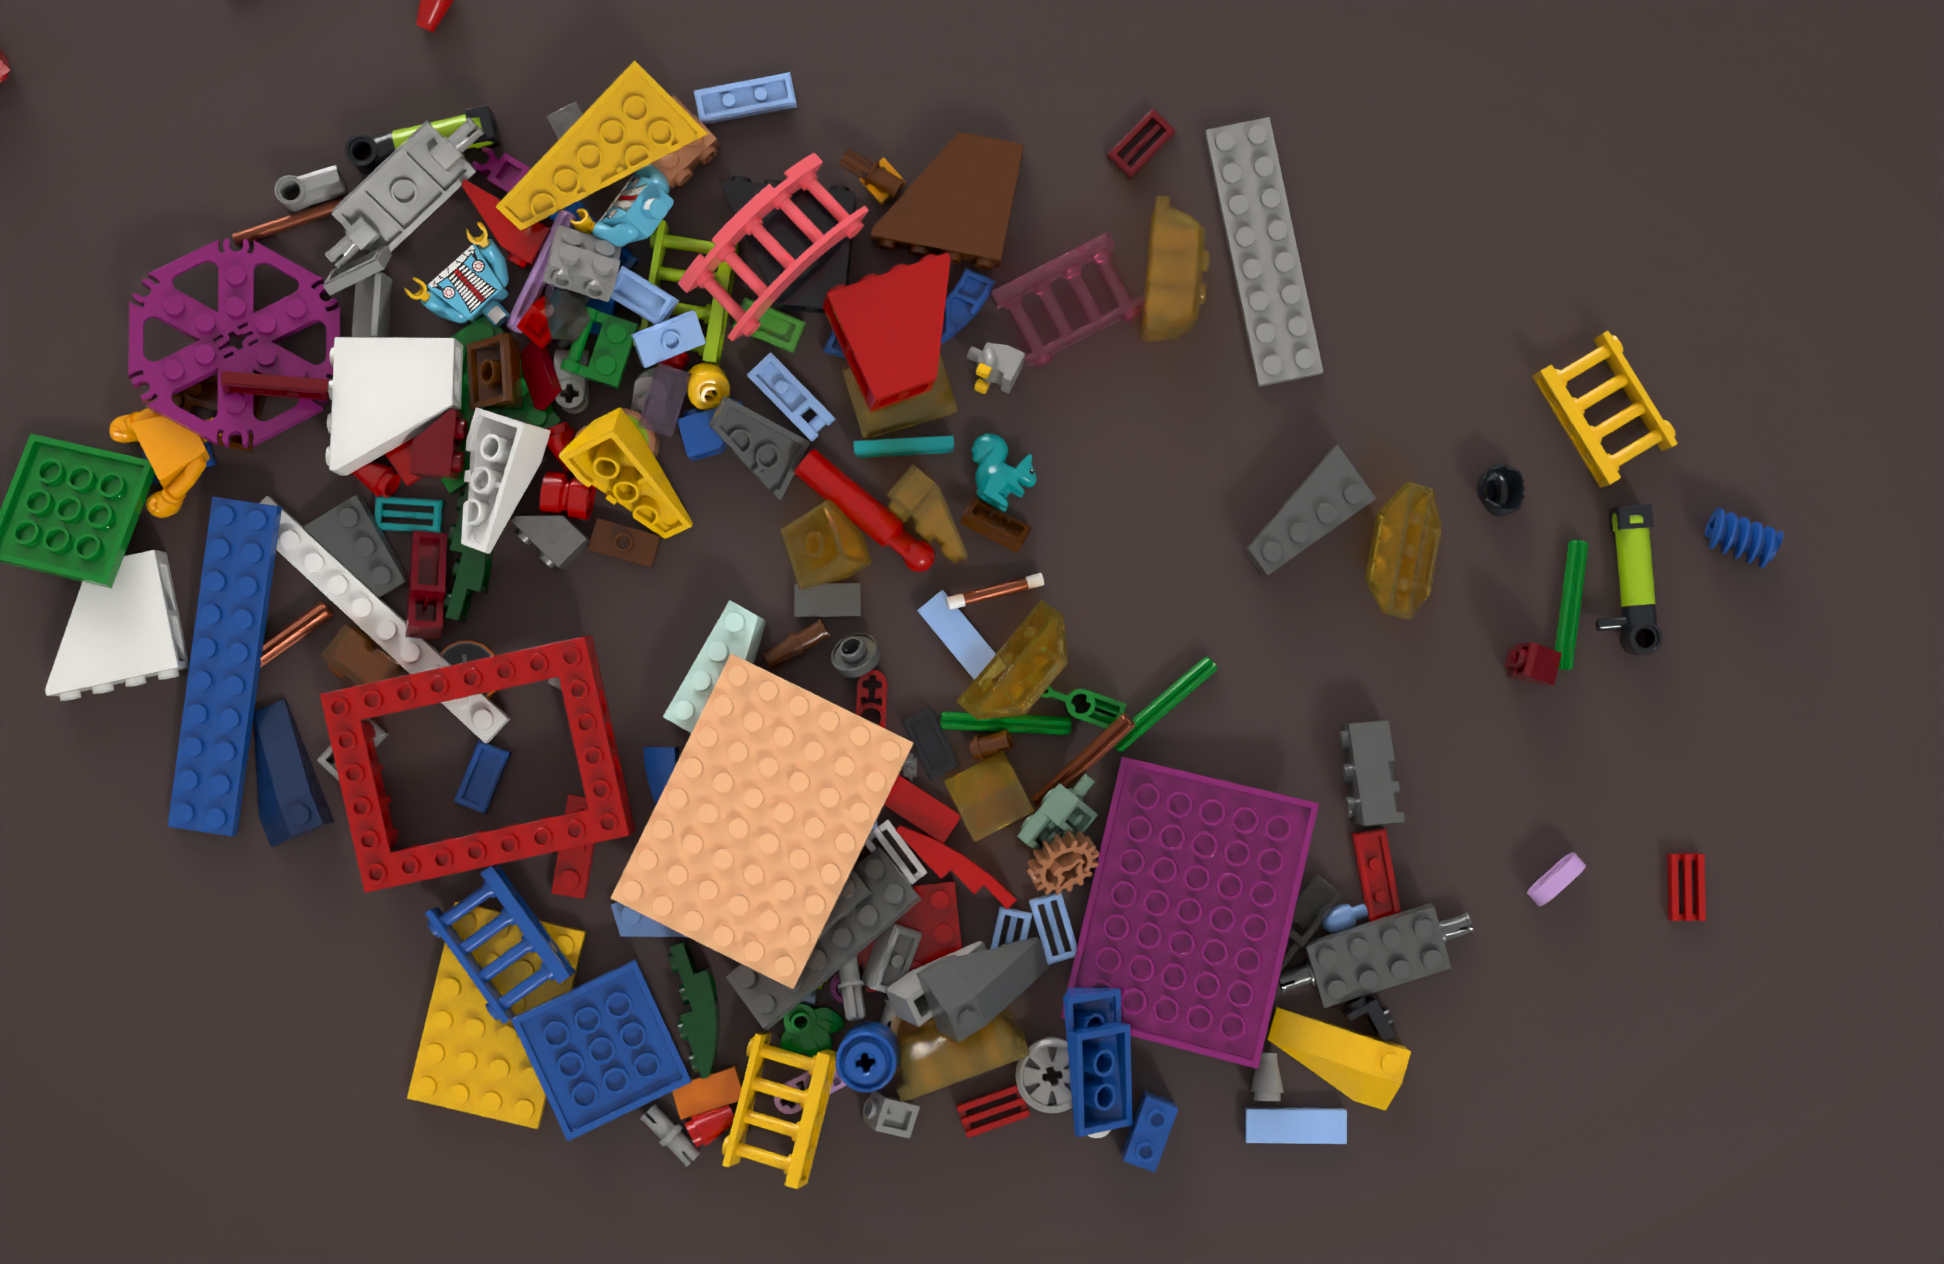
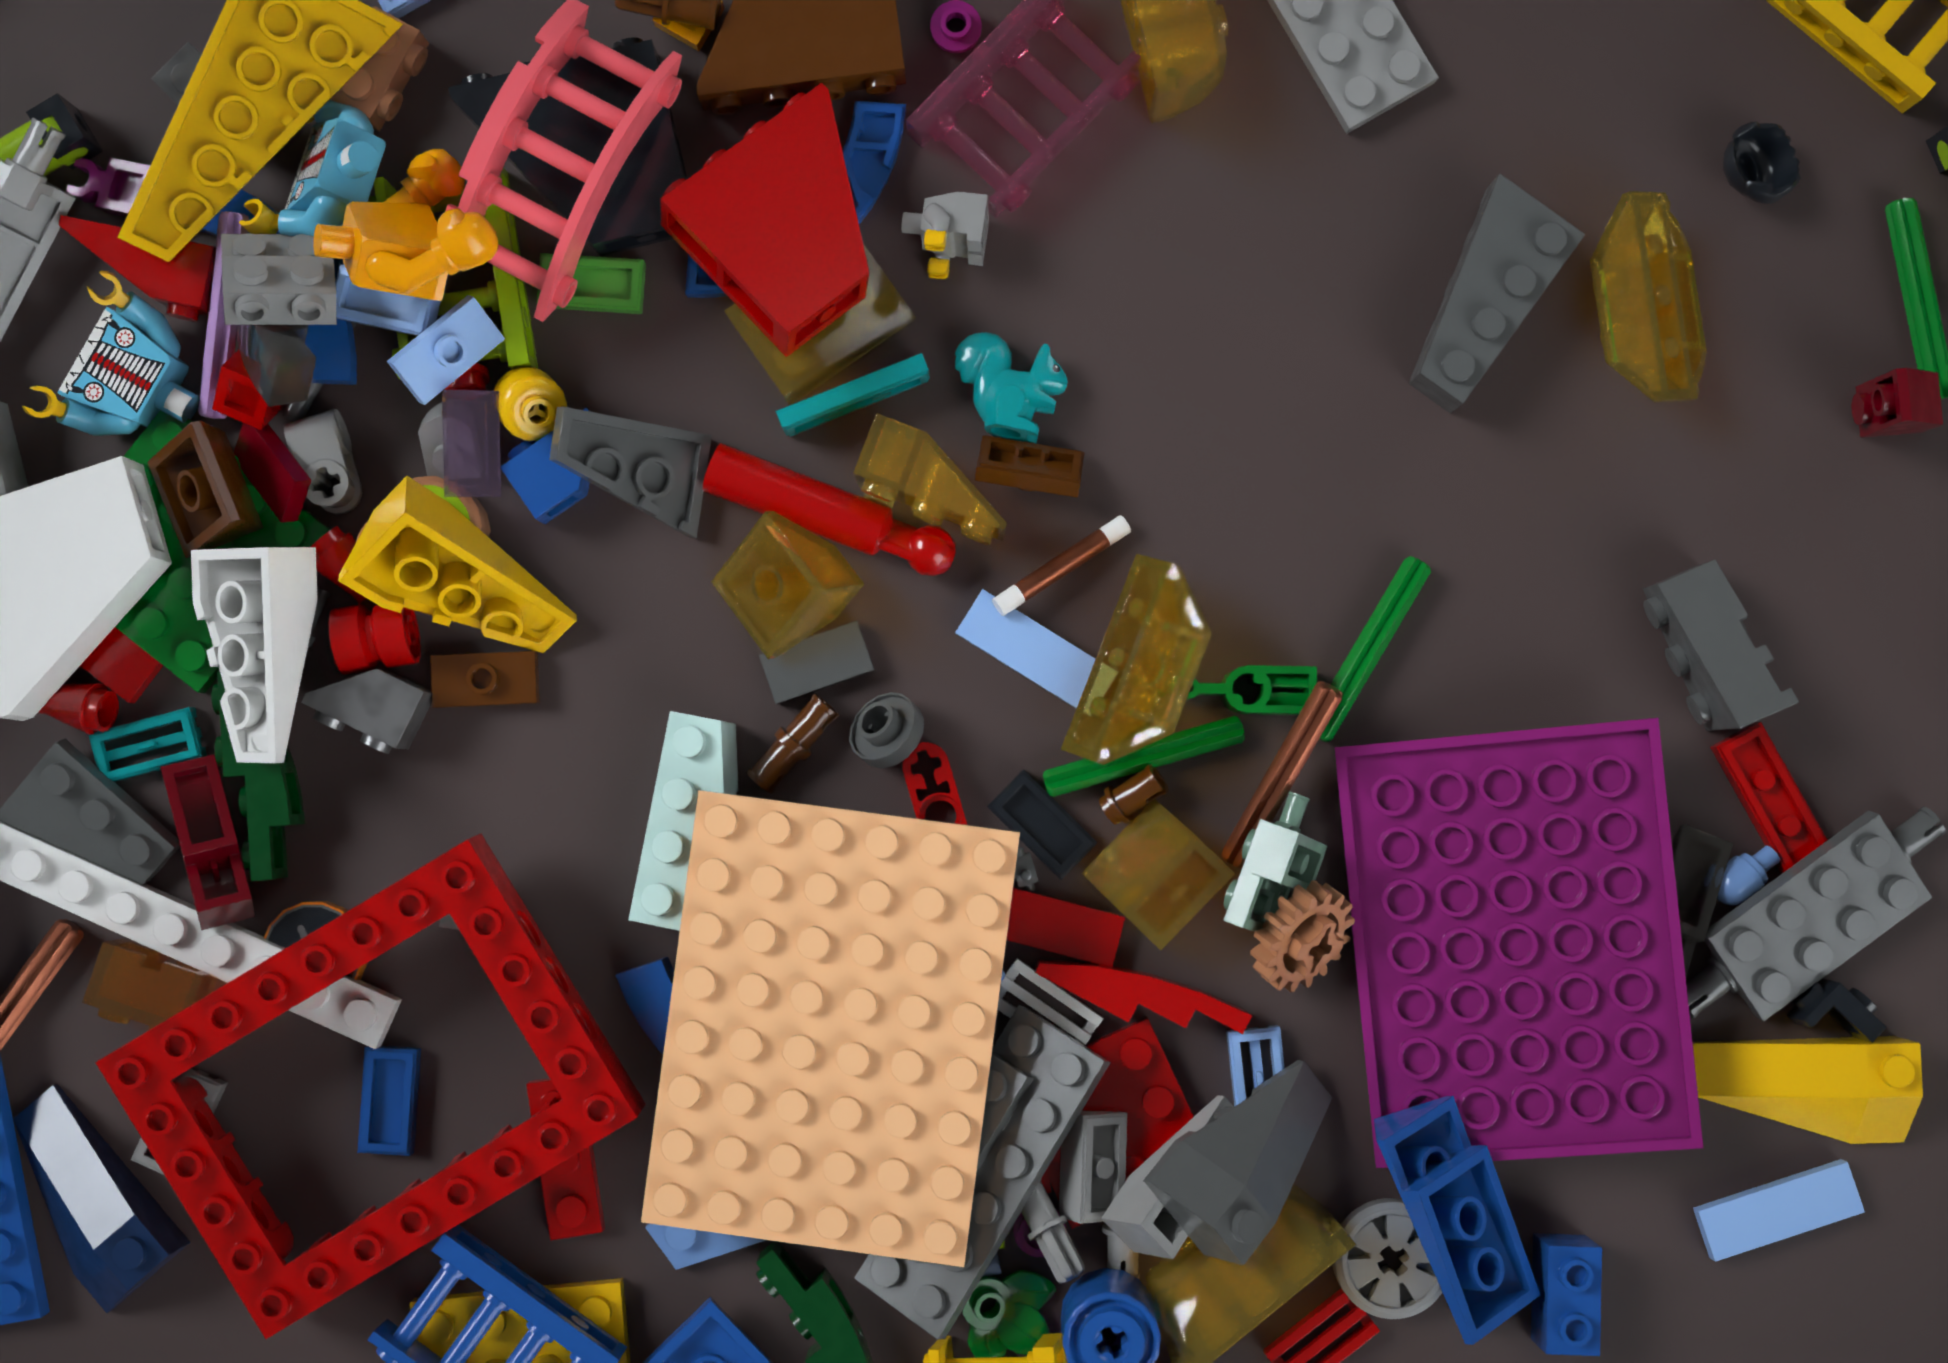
camera: 15 degrees left, 0 degrees up
(438, 448) = (155, 628): dark red slope -> none
(609, 352) = (365, 400): green plate -> none
(662, 265) = (399, 242): none -> light orange torso
(789, 395) = (658, 377): light blue plate -> none
(1041, 253) = (956, 41): none -> magenta plate
(1045, 899) = (1345, 1073): light blue tile -> none
(1267, 1079) = (1718, 1162): light grey cone -> none

